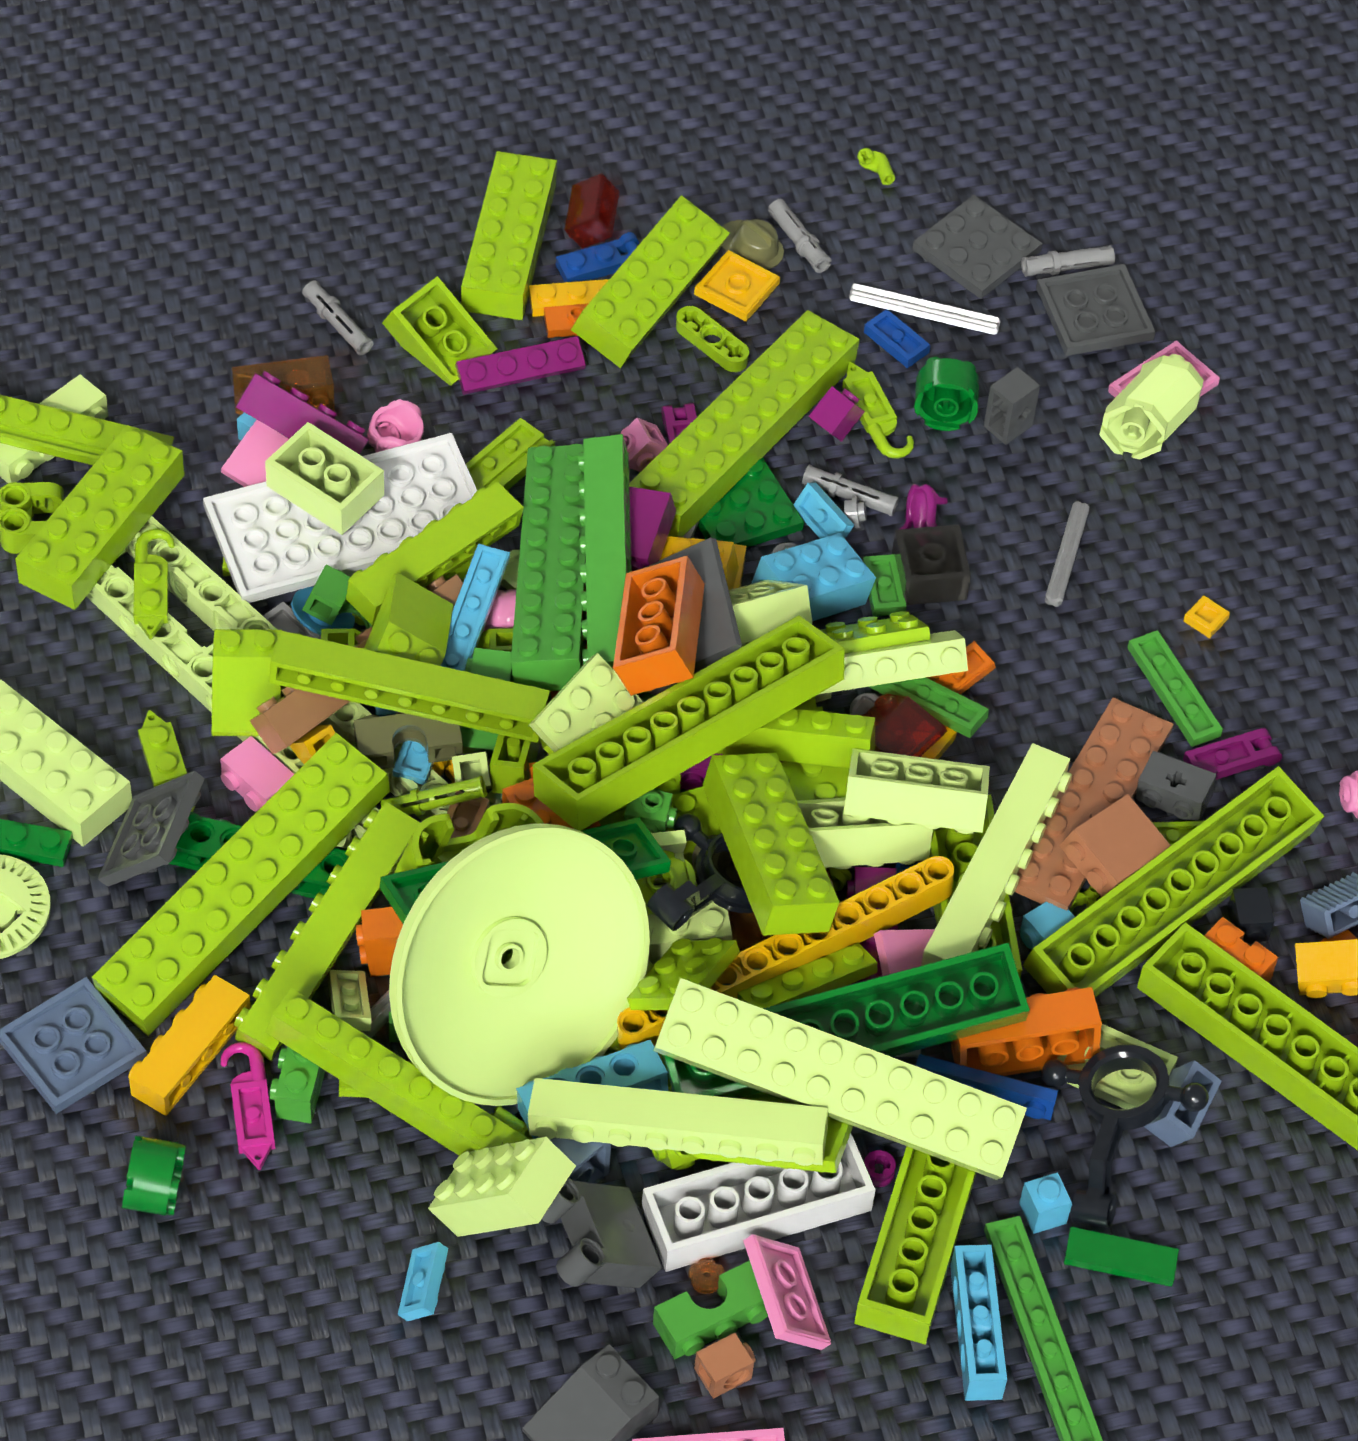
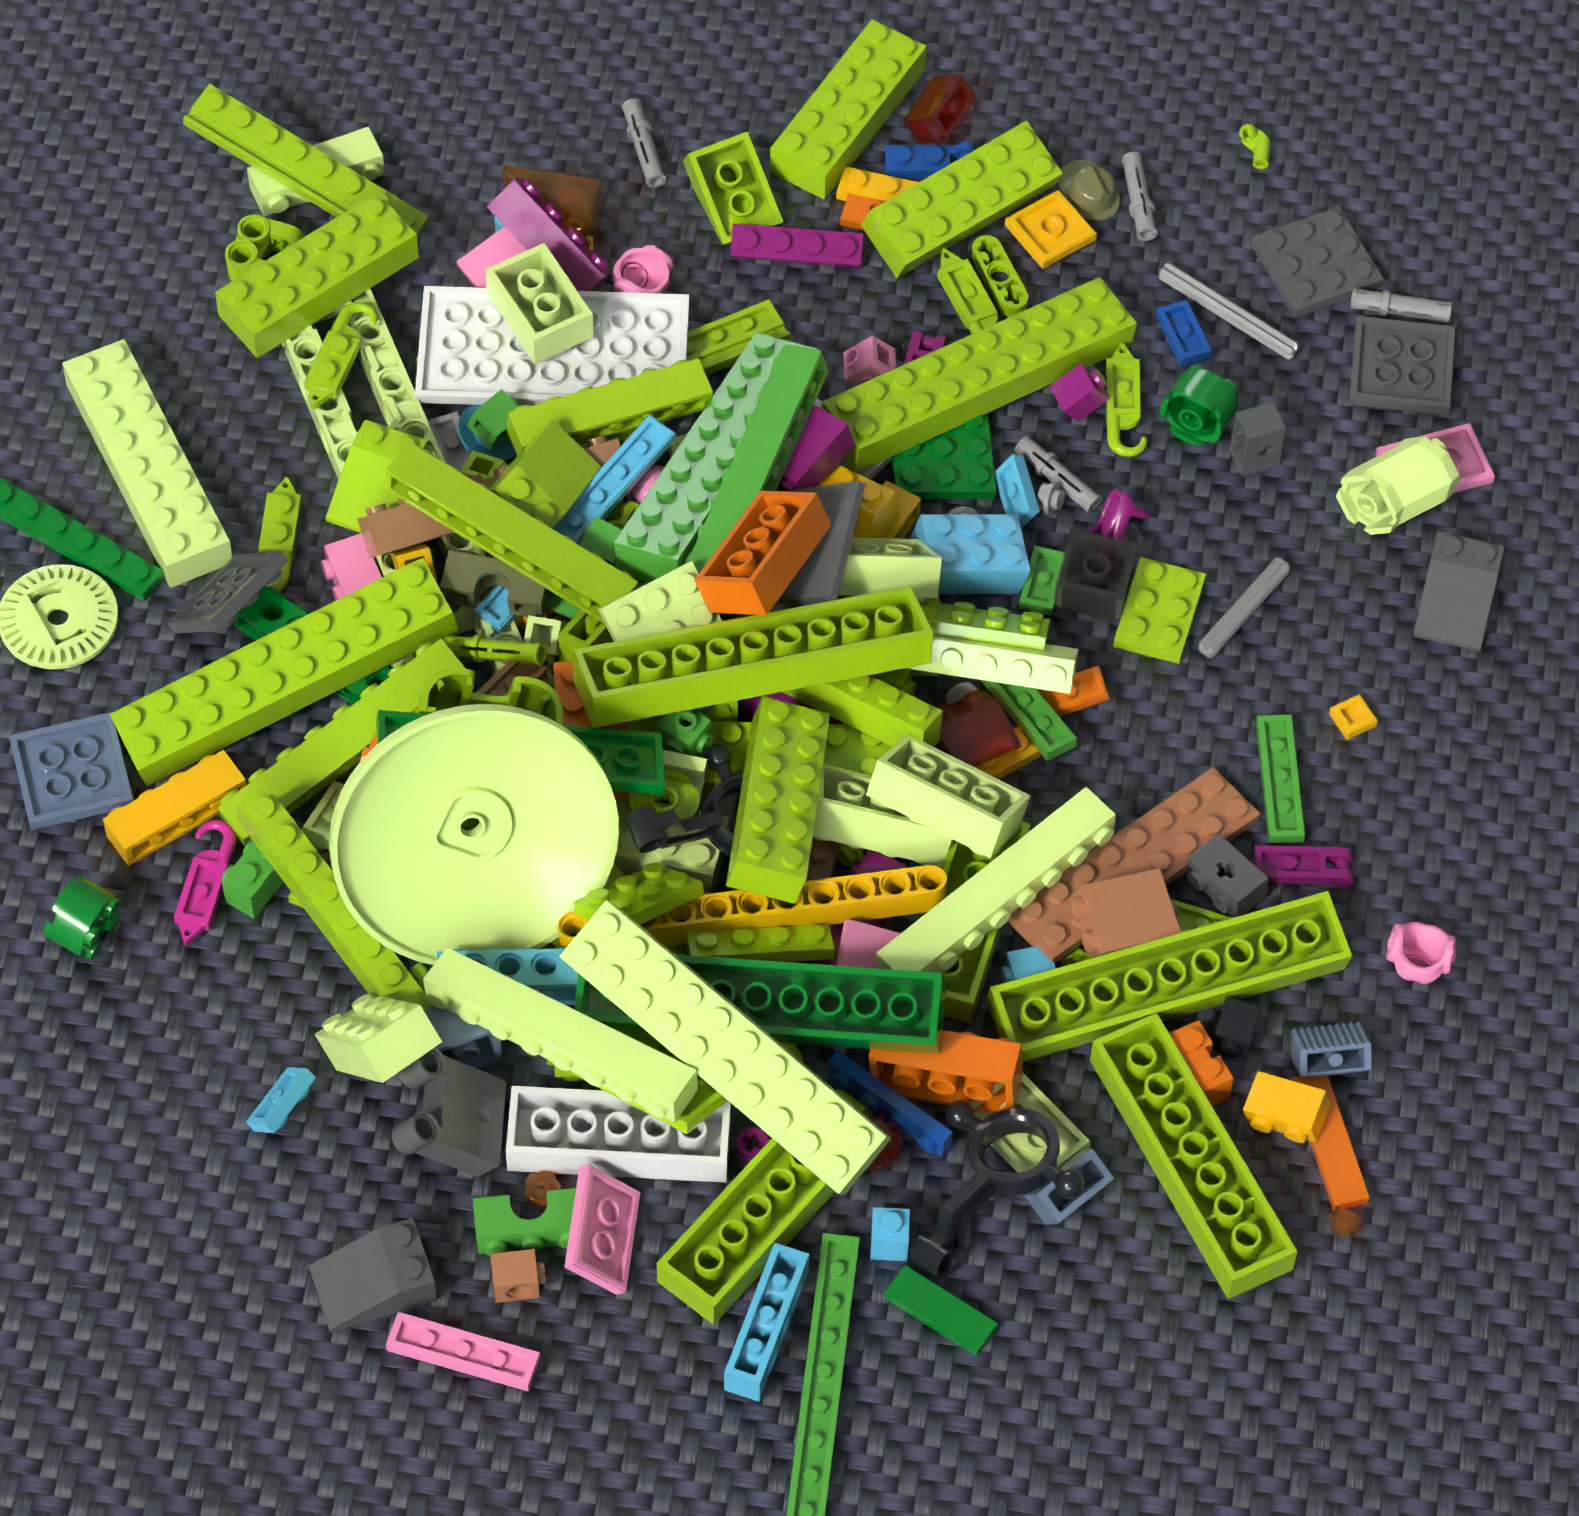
camera: 25 degrees right, 5 degrees up
(693, 360) = (966, 292): none -> lime plate
(999, 580) = (1159, 610): none -> lime plate
(1241, 481) = (1458, 591): none -> dark grey slope

